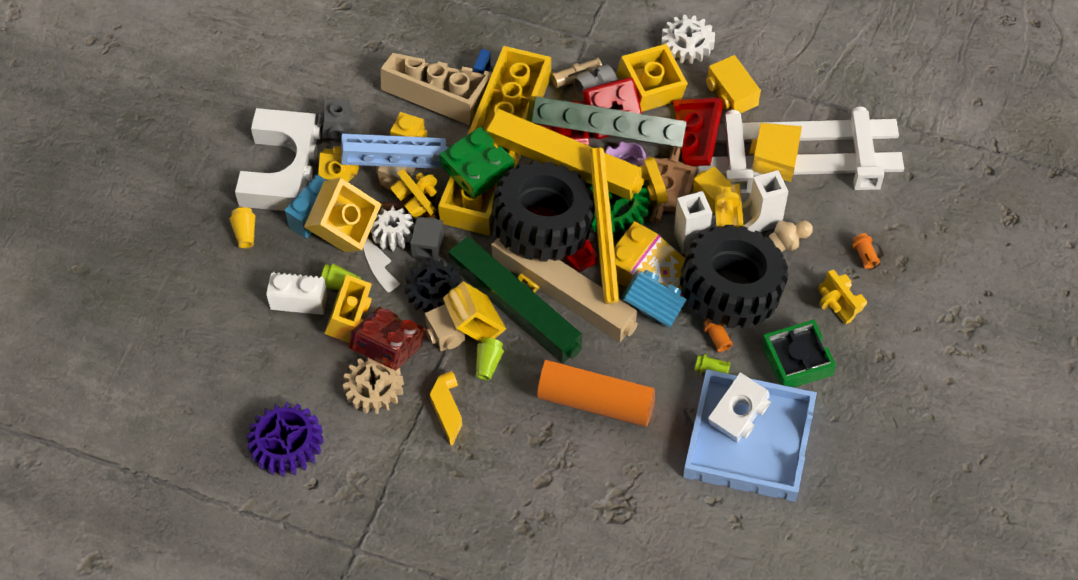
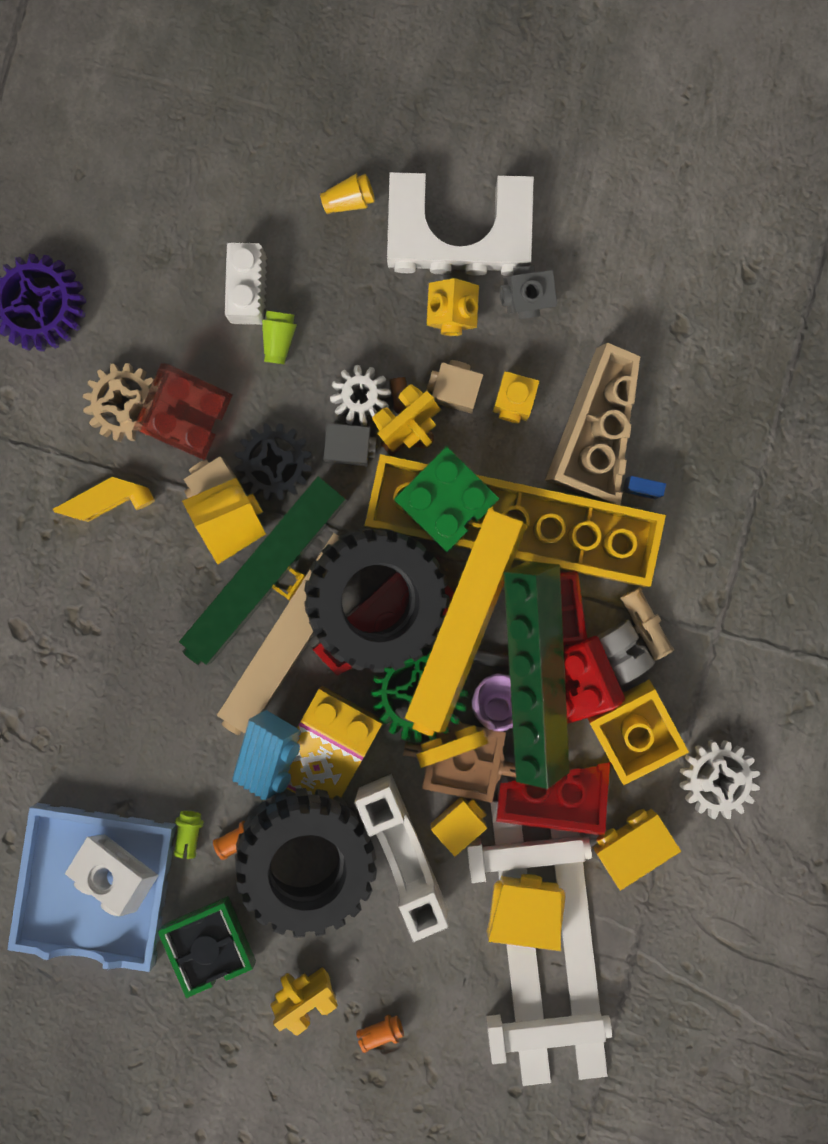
camera: 85 degrees right, 30 degrees up
(299, 210) = (383, 281): dark azure brick -> none
(342, 215) = (356, 325): yellow brick -> none
(348, 308) = (222, 355): yellow brick -> none
(377, 262) = (317, 382): white sticker -> none
(391, 151) = (454, 383): light blue fence -> none
(488, 356) = (176, 545): lime cone -> none
(596, 393) = (125, 692): orange brick -> none
(604, 225) = (353, 685): yellow axle -> none
(728, 205) = (410, 852): yellow hips -> none
(787, 234) = (390, 928): tan animal -> none

